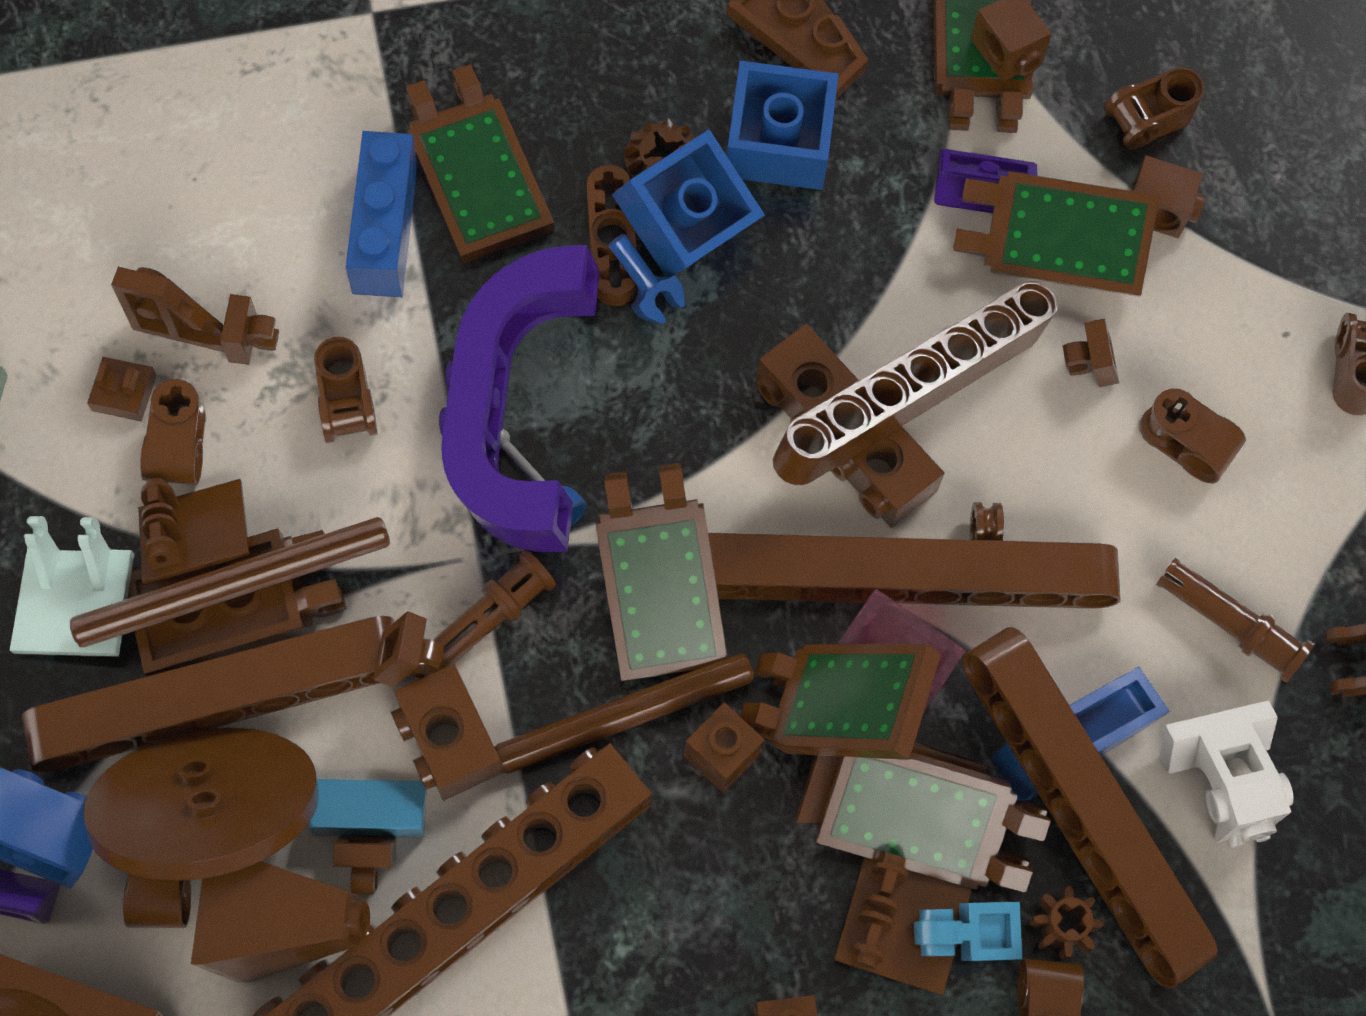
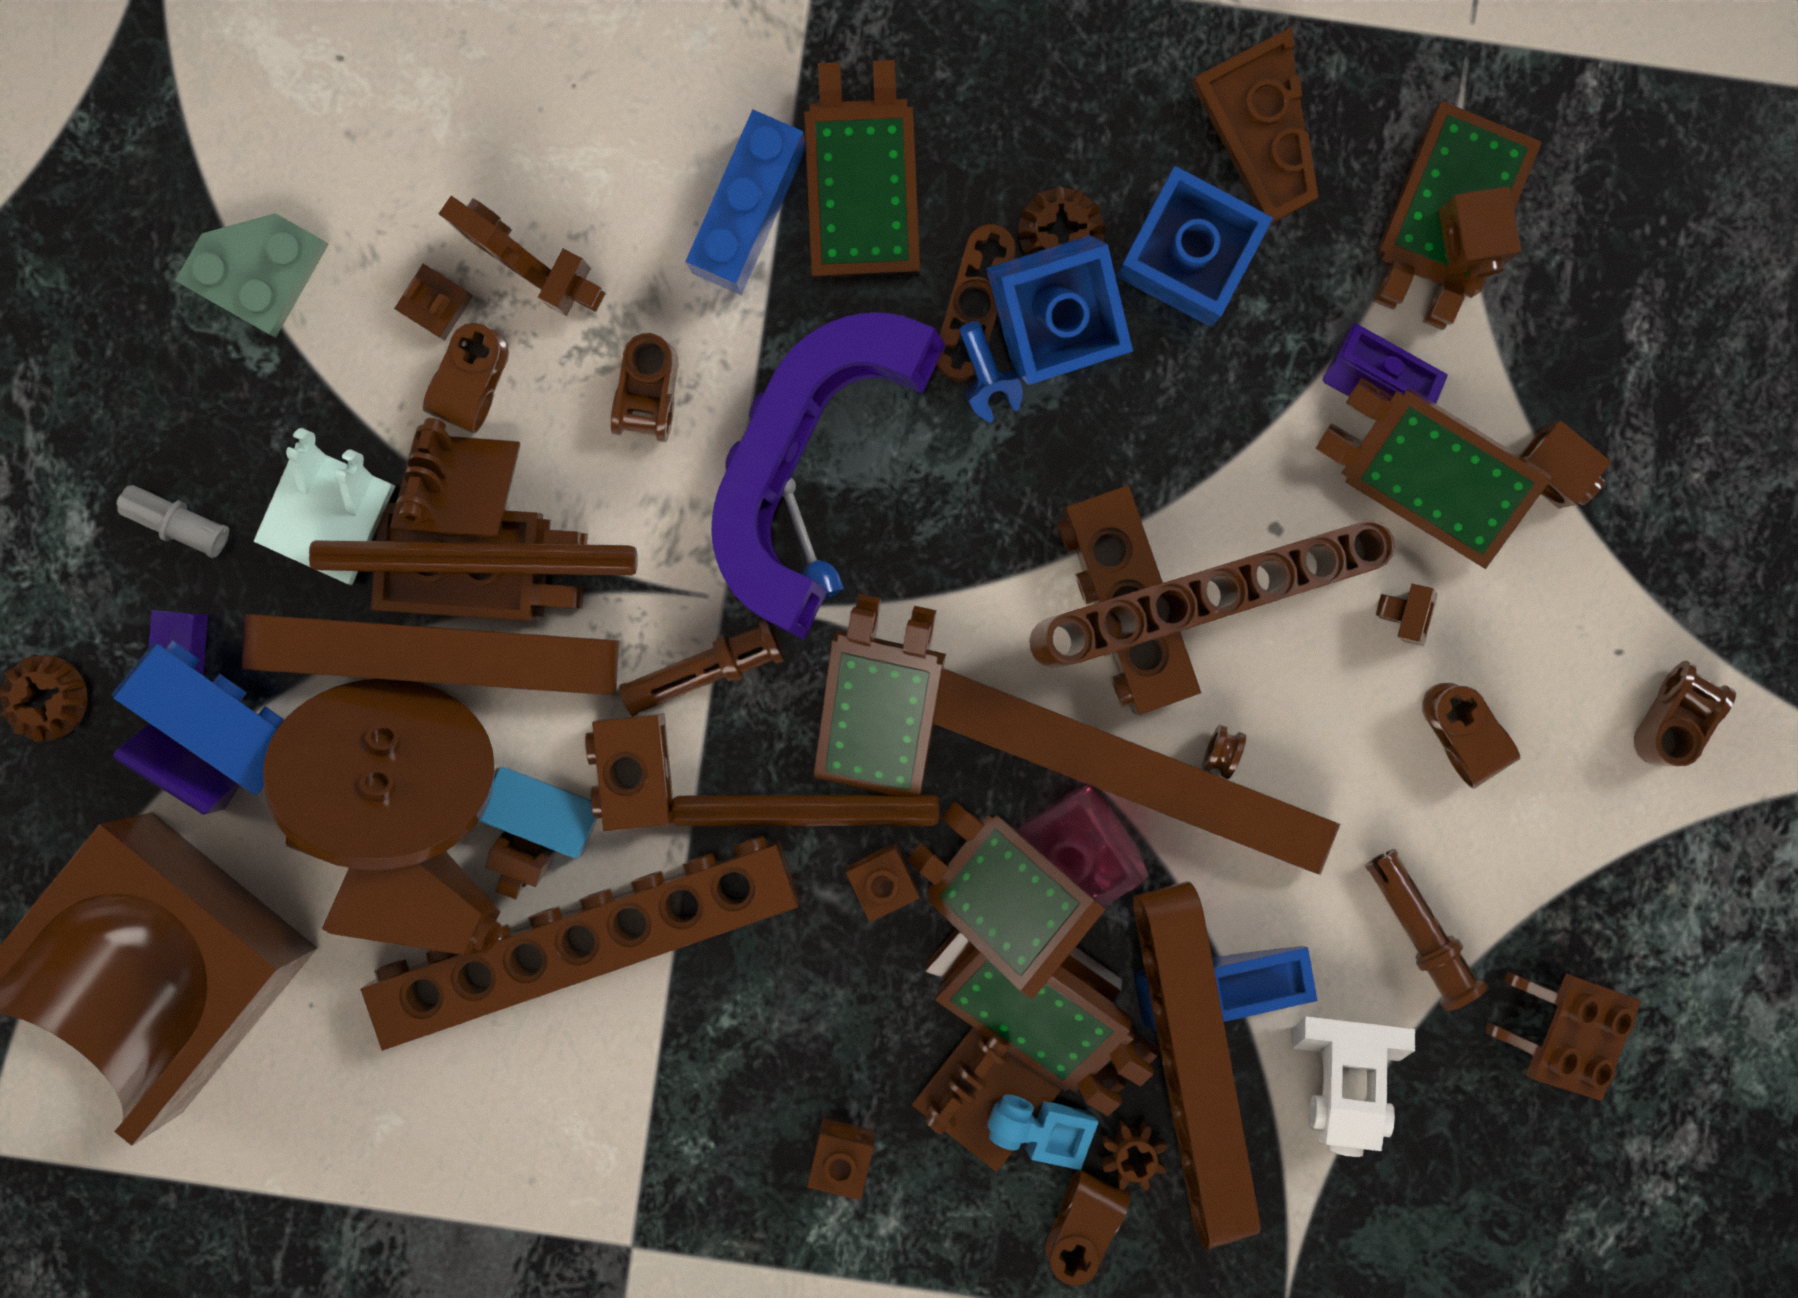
camera: 30 degrees right, 20 degrees up
(406, 651) = (613, 691): reddish brown tile -> none
(1149, 112) = (1592, 358): reddish brown piece -> none

